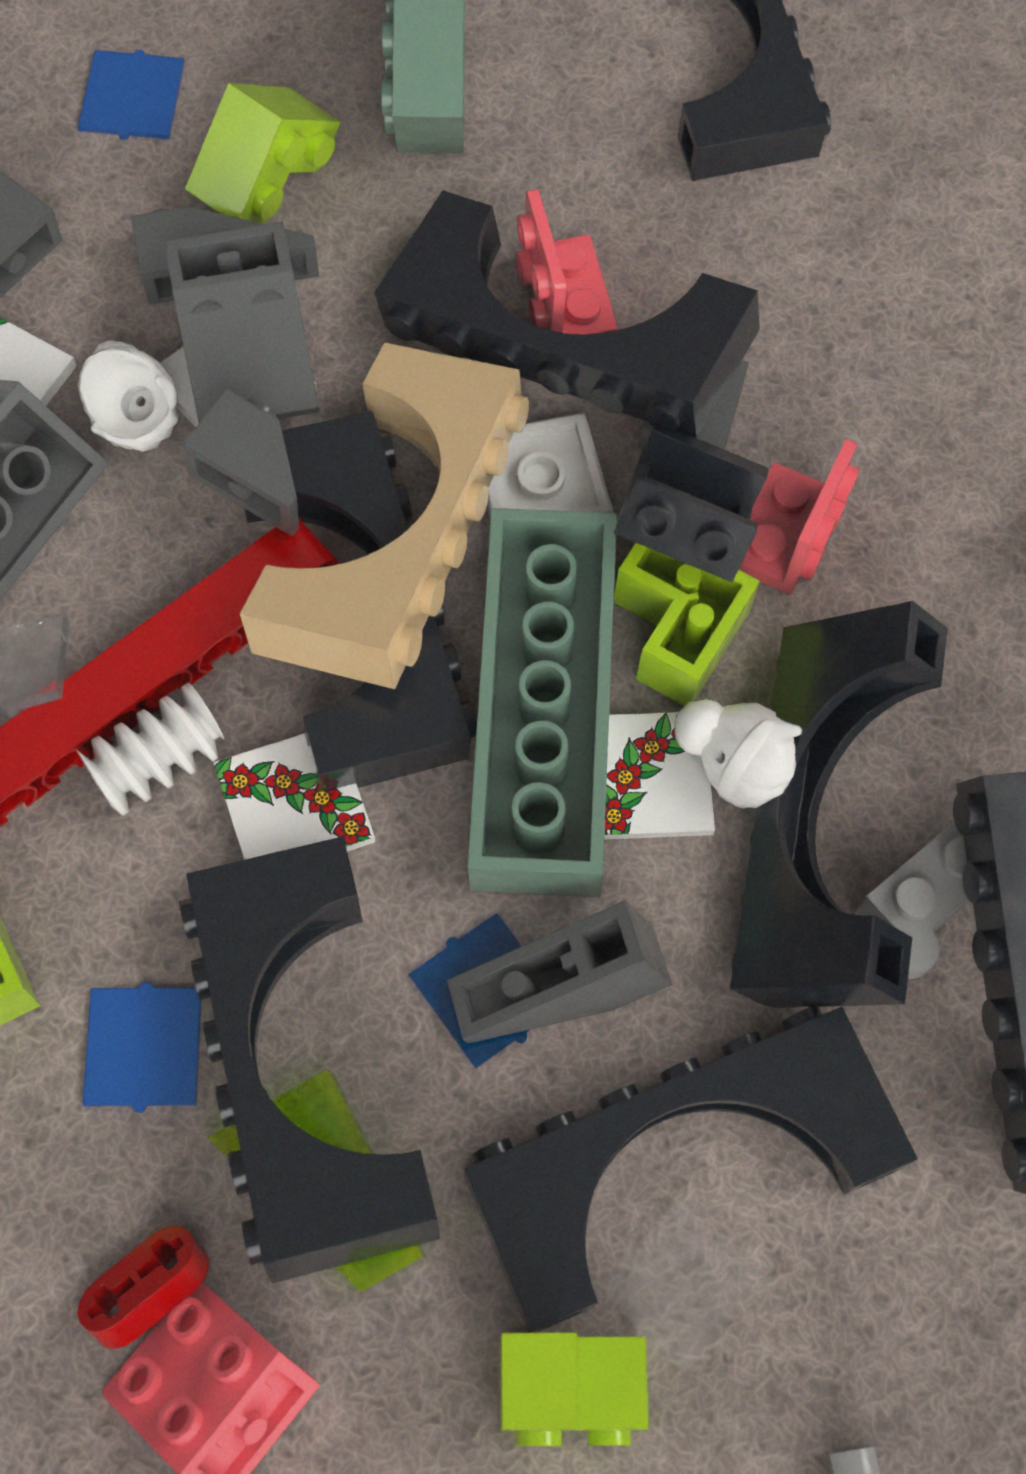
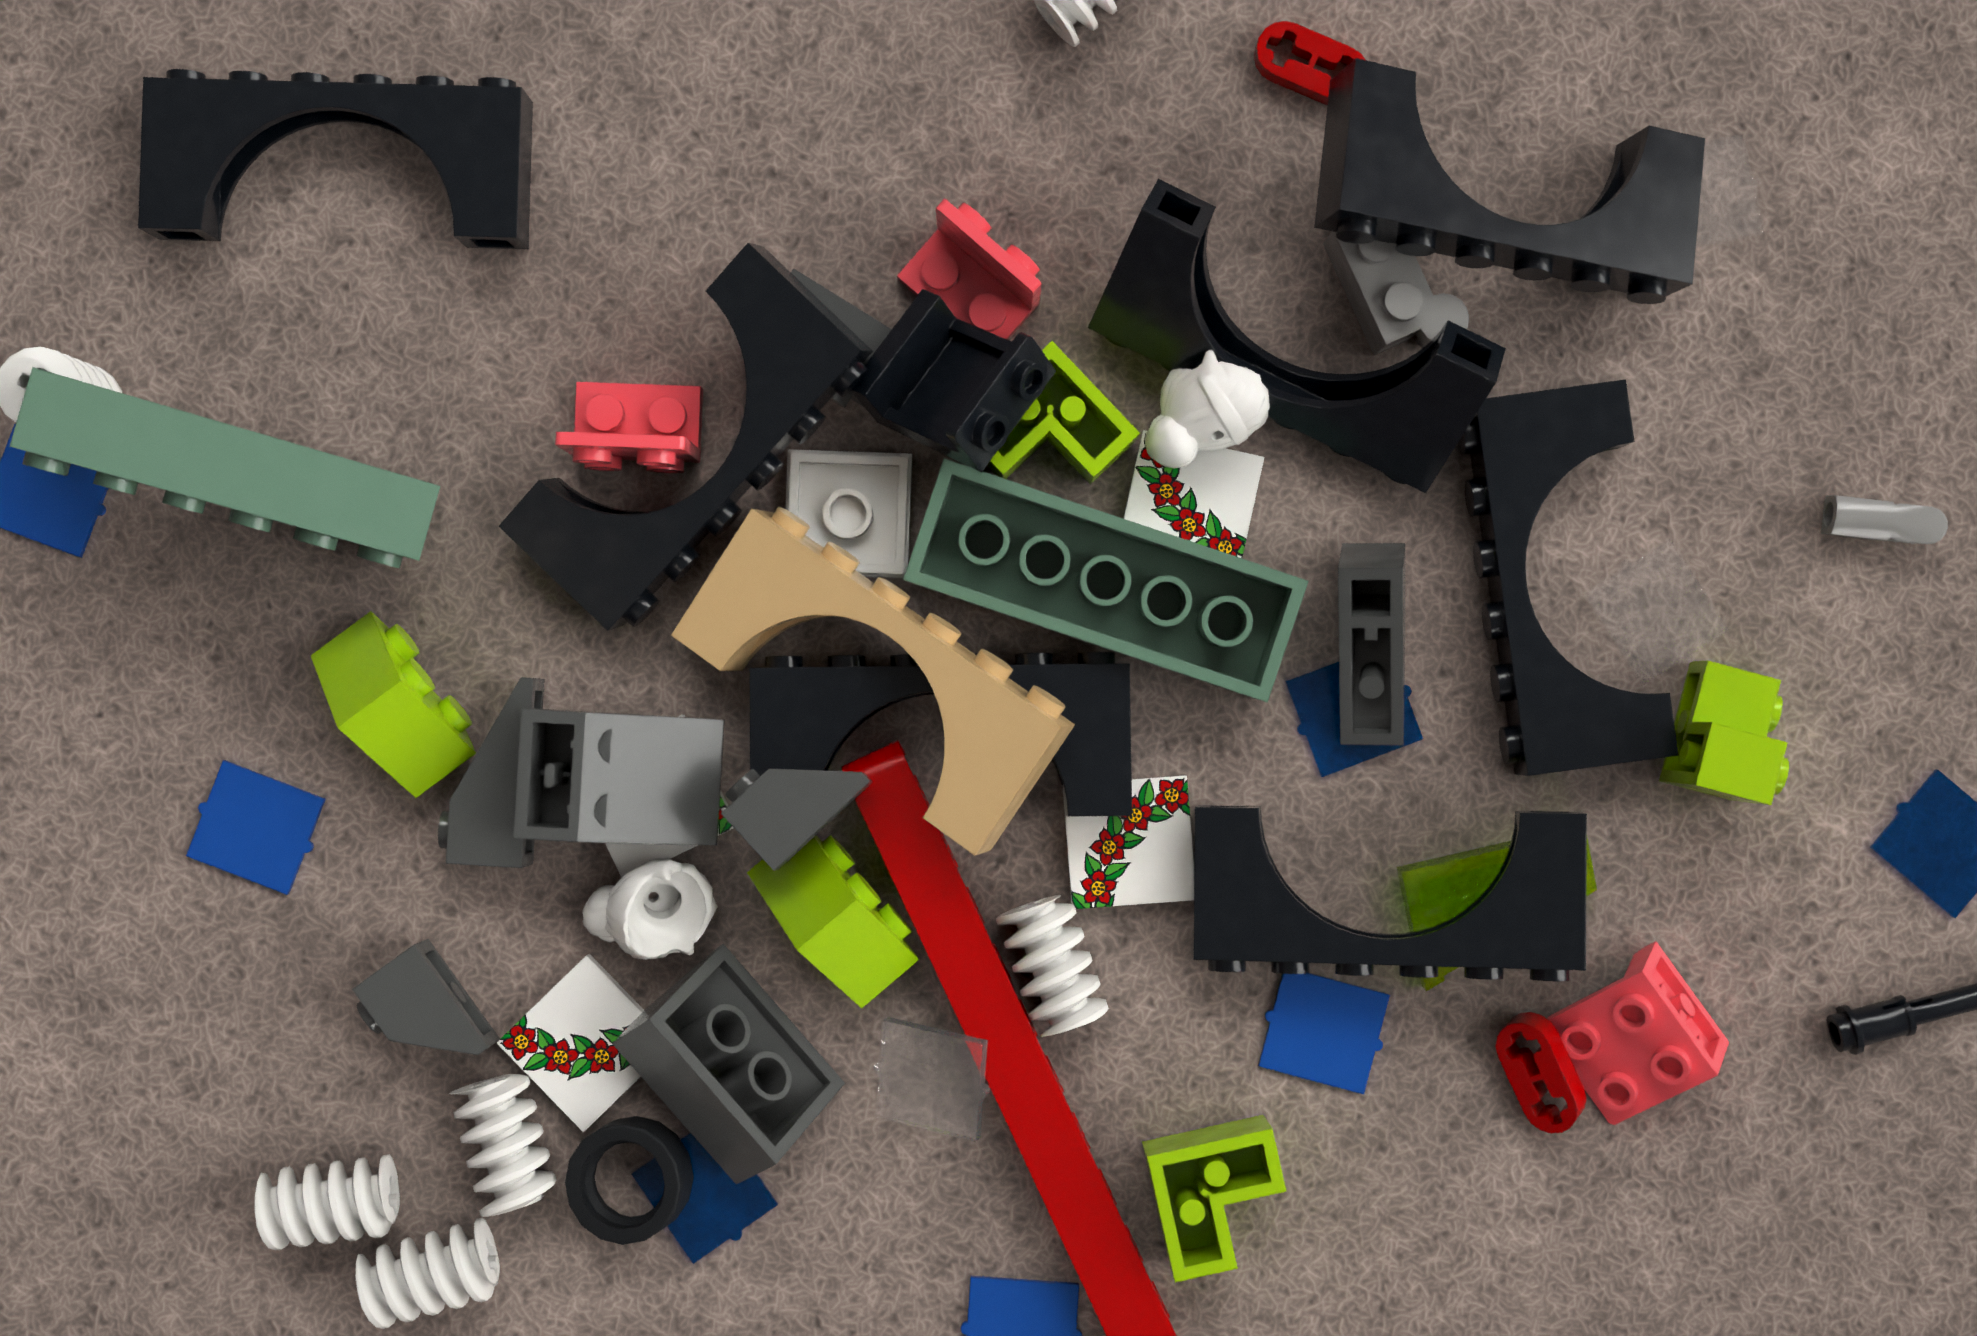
camera: 70 degrees left, 20 degrees up
(146, 536) = (837, 919): none -> lime brick

